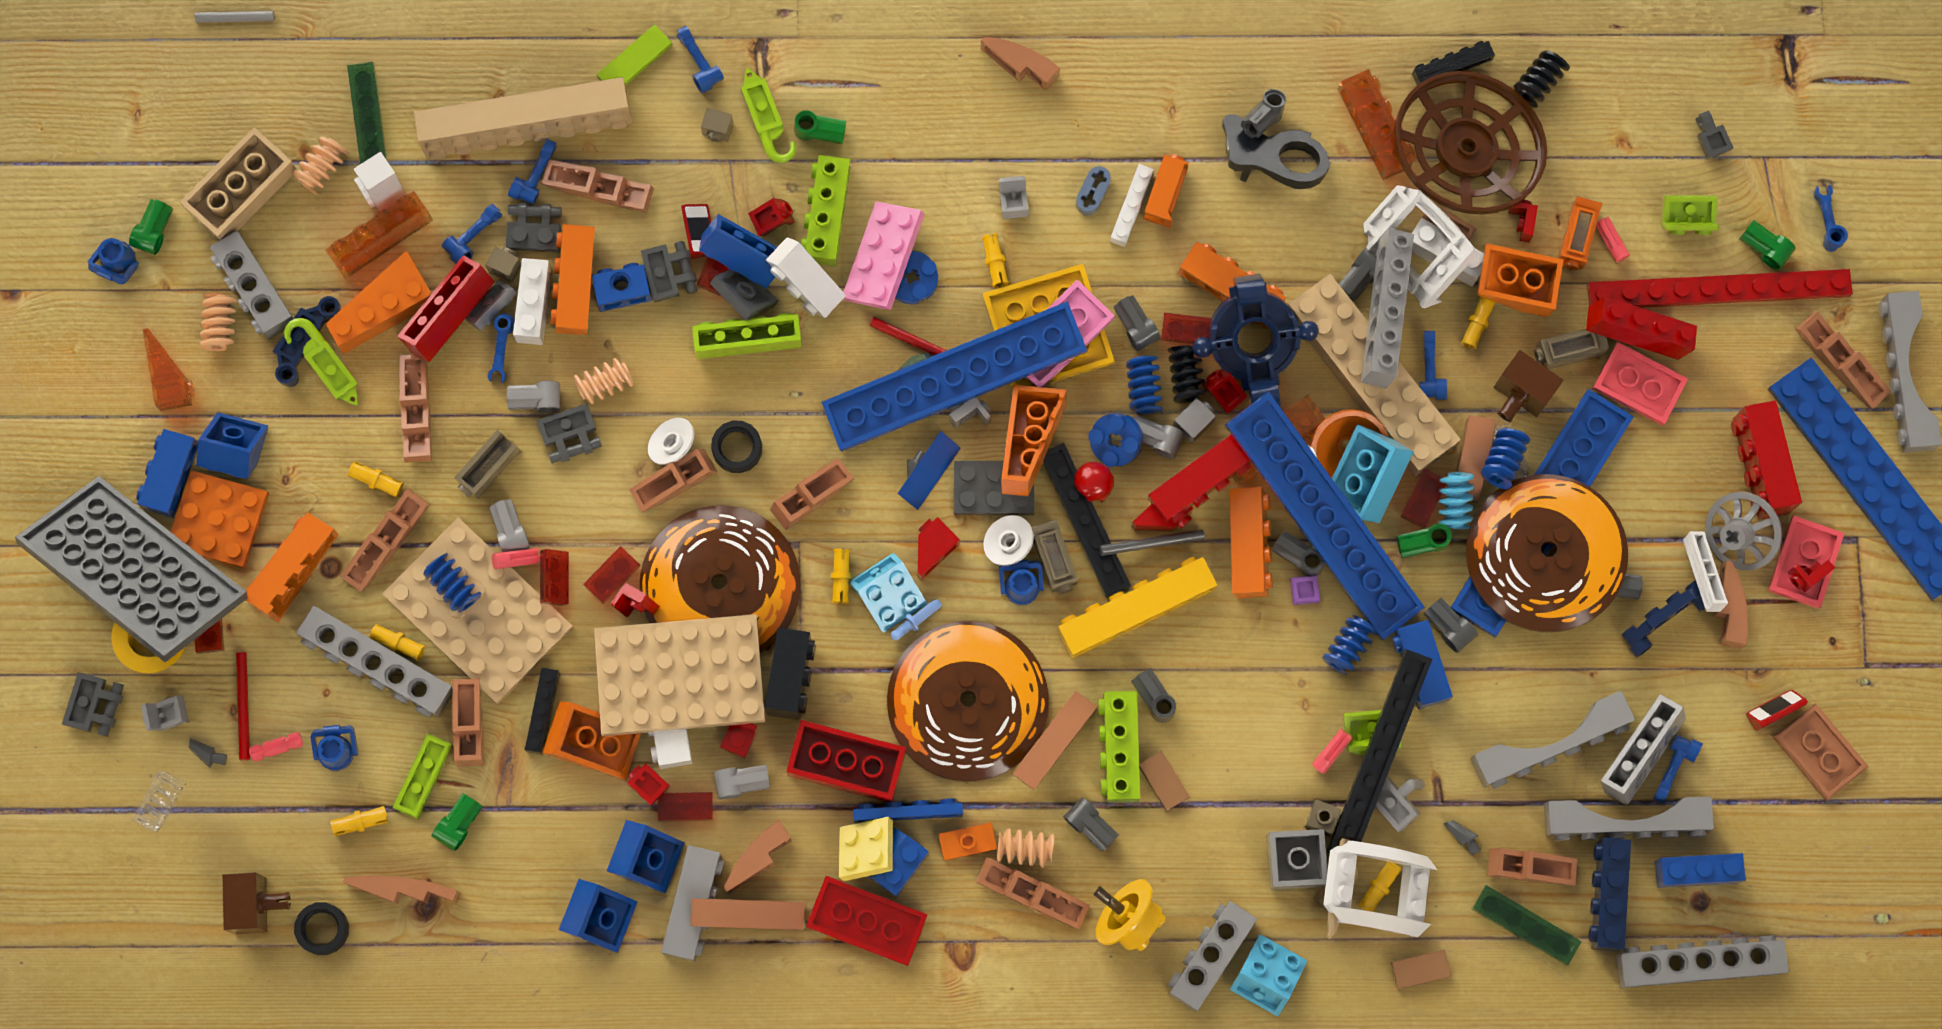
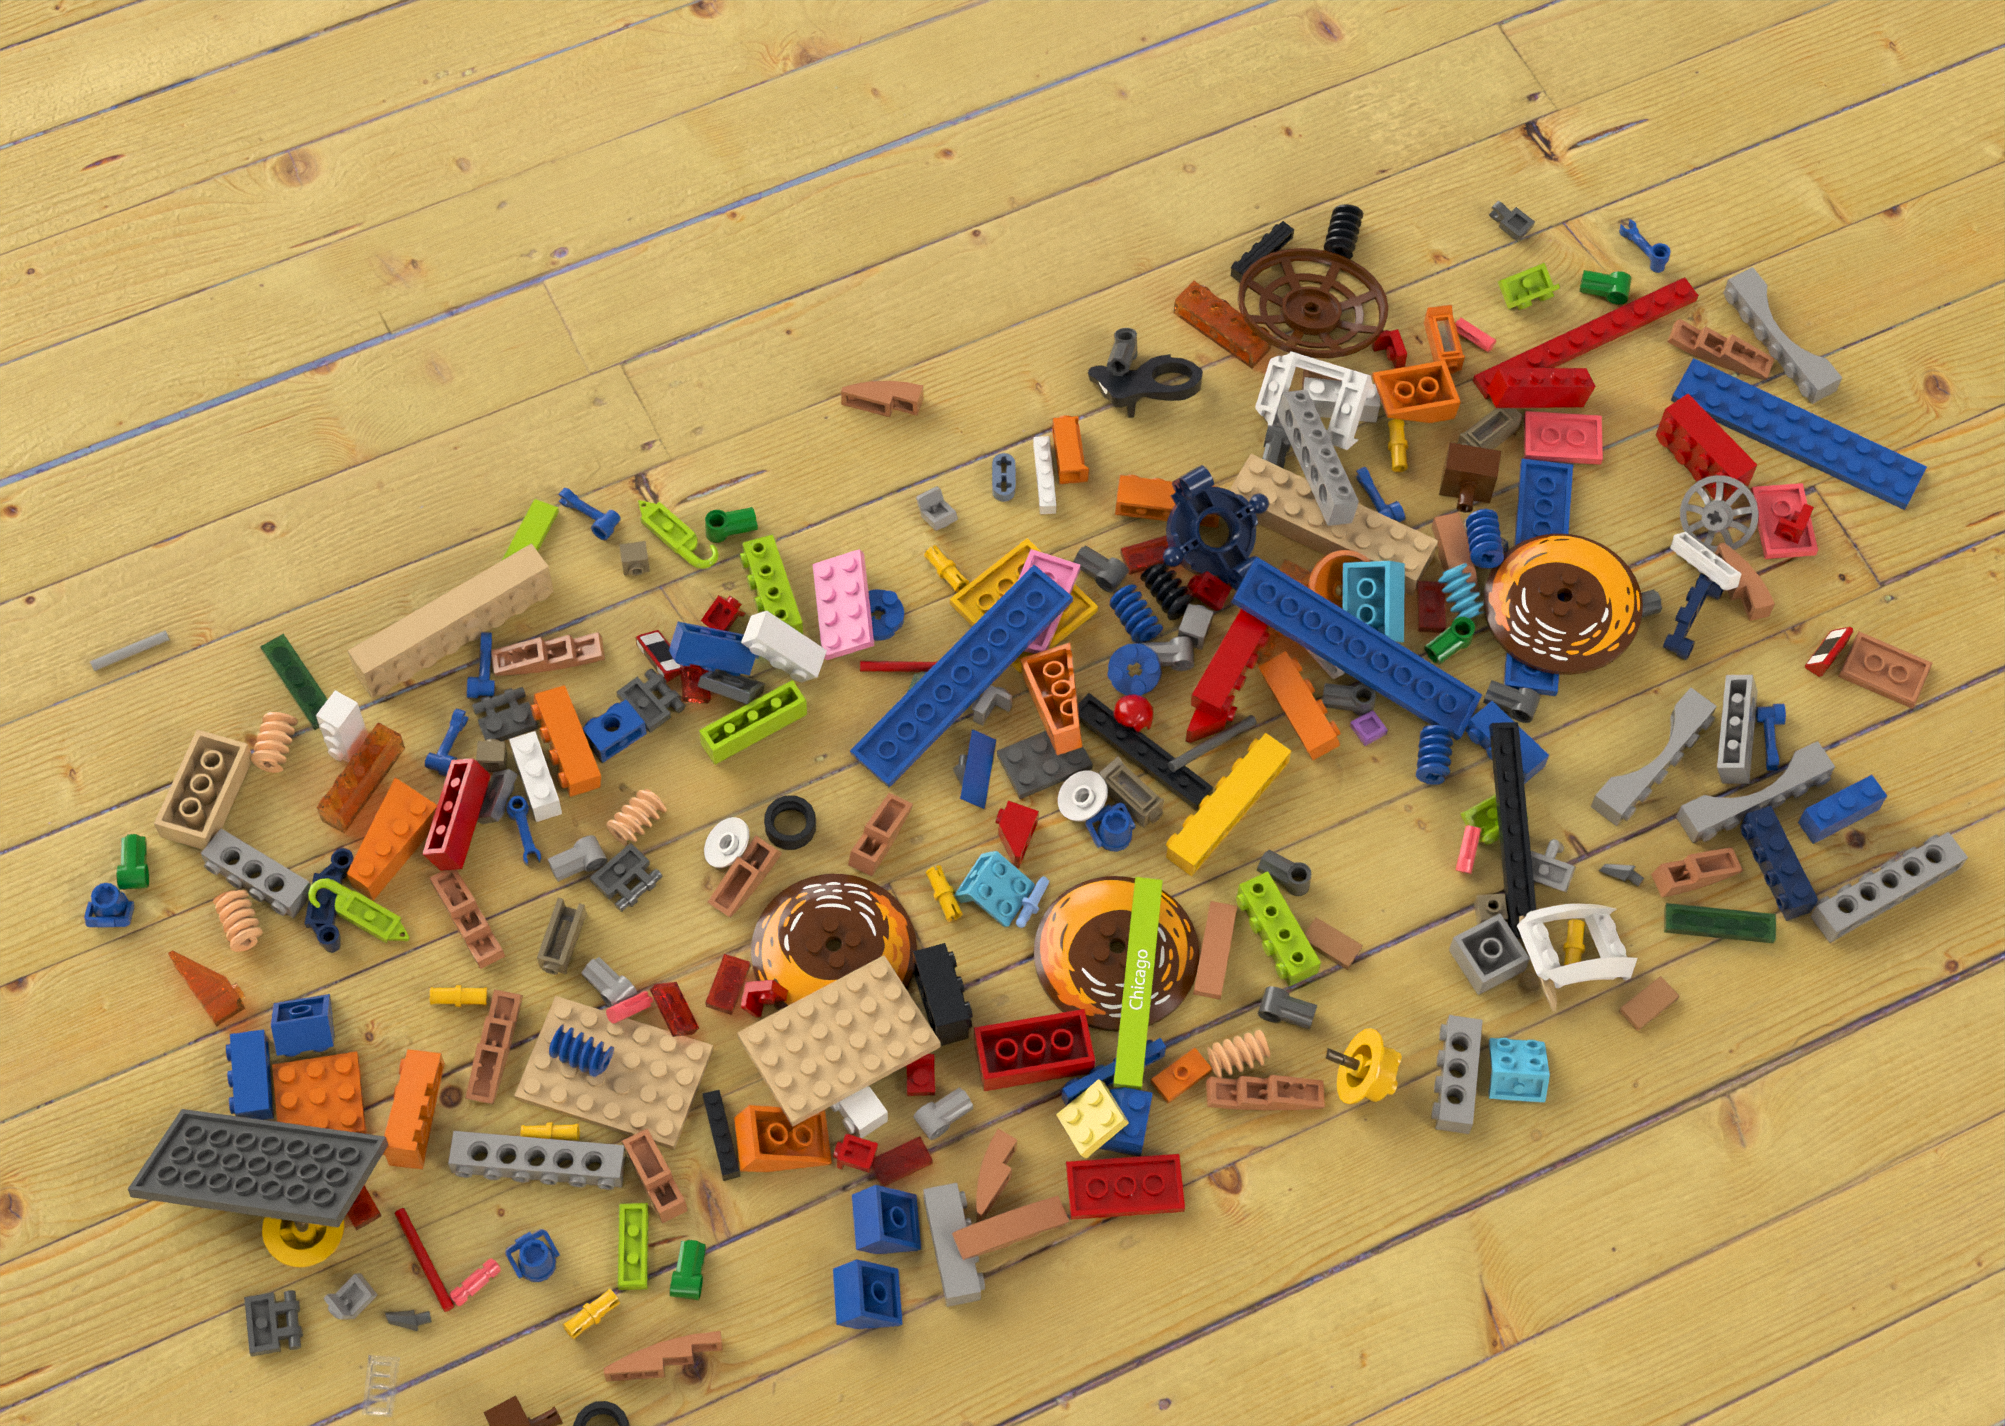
camera: 25 degrees left, 15 degrees down
(966, 743) = (1138, 983): none -> lime tile

